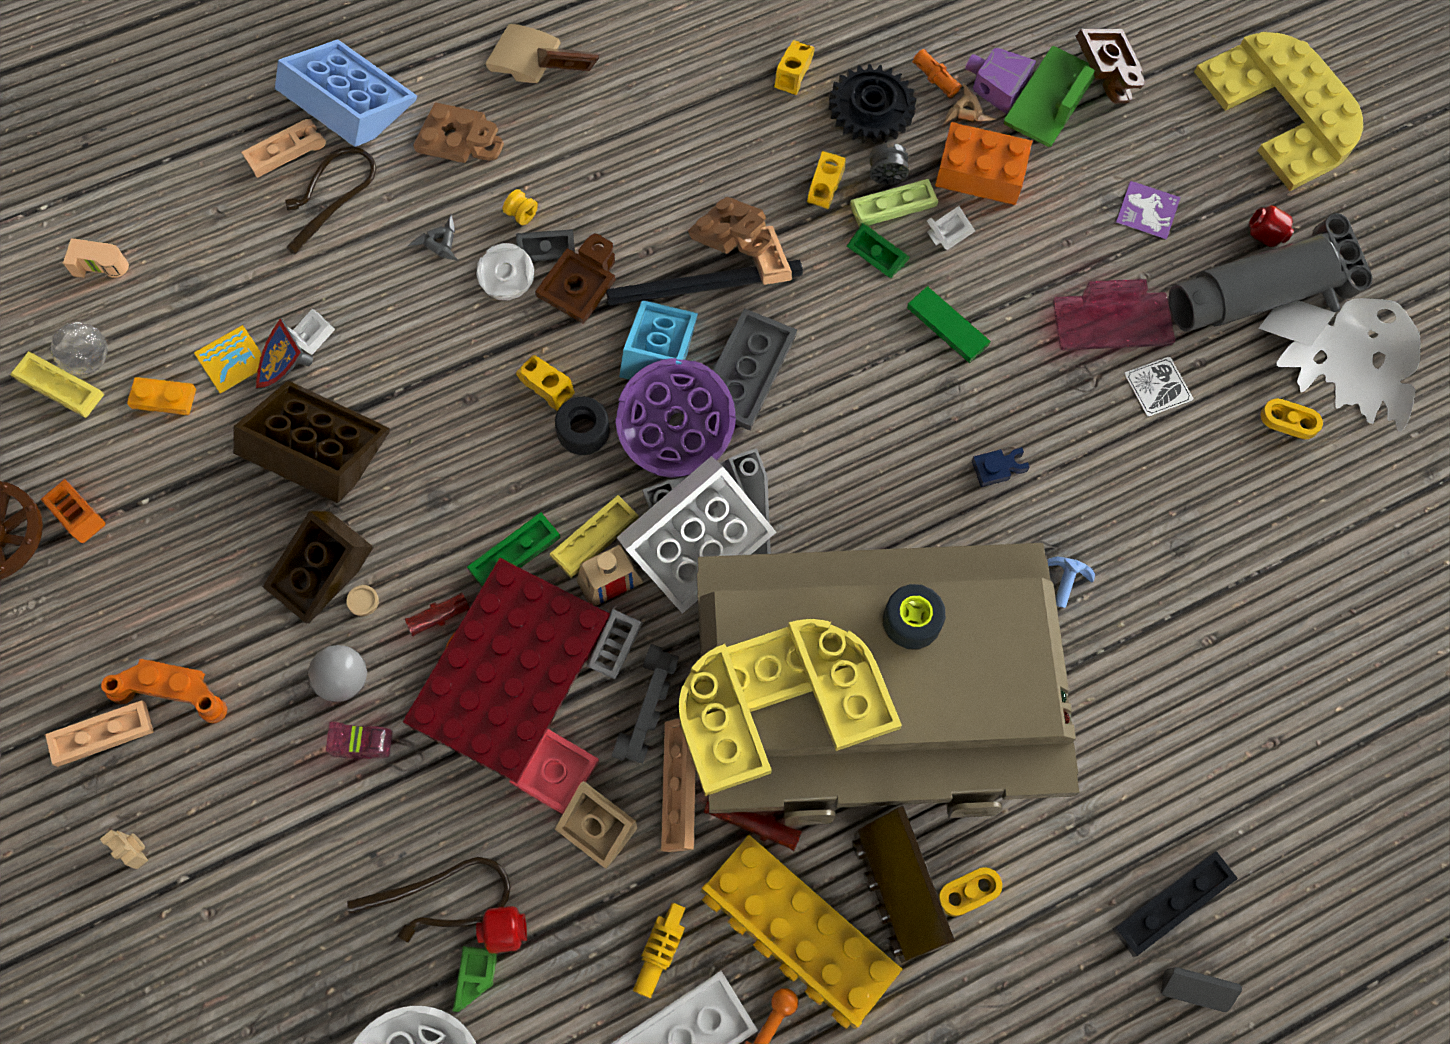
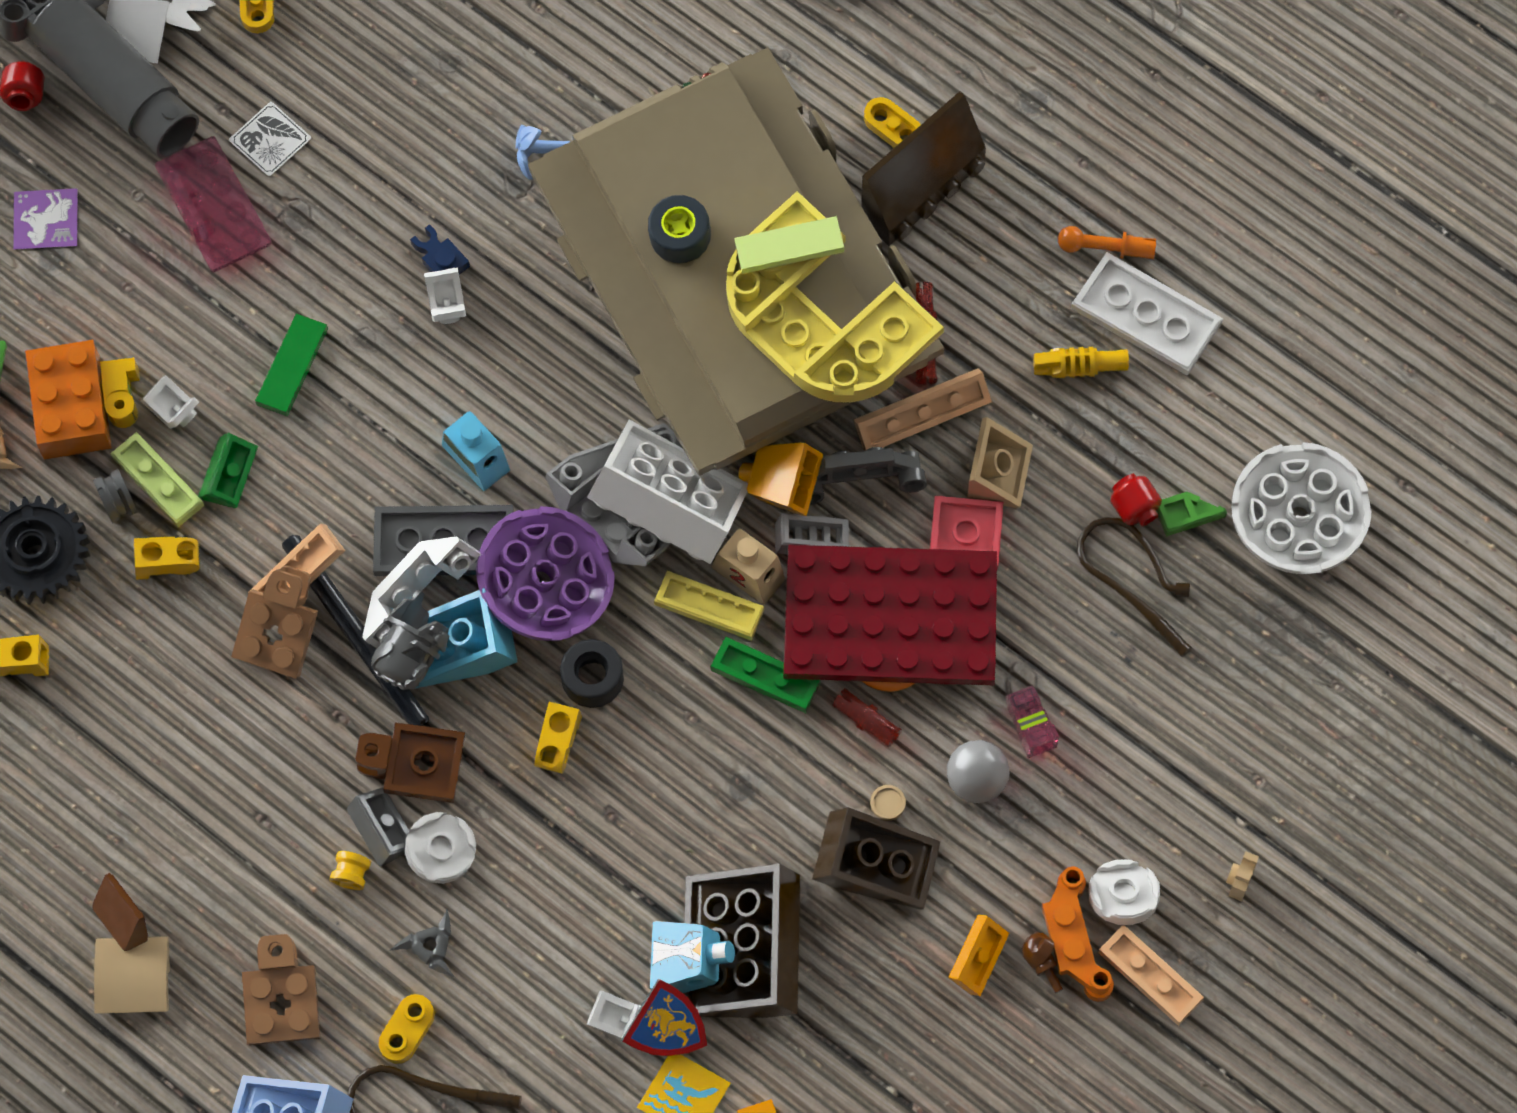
camera: 110 degrees left, 0 degrees up
(169, 652) = (1038, 954): none -> reddish brown piece
(176, 745) = (1124, 892): none -> white tile
(196, 606) = (979, 955): none -> light orange plate
(321, 392) = (687, 955): none -> medium azure torso
(386, 200) = (407, 1028): none -> yellow plate
(663, 297) = (409, 644): none -> dark grey helmet
(666, 634) = (783, 476): none -> light orange torso
(705, 303) = (415, 574): none -> white slope
(800, 932) = (1002, 254): yellow bracket -> none
(809, 415) = (471, 446): none -> medium azure torso
(848, 692) = (789, 245): none -> yellowish green tile
(956, 451) = (445, 295): none -> white bracket
(975, 199) = (117, 390): none -> yellow leg

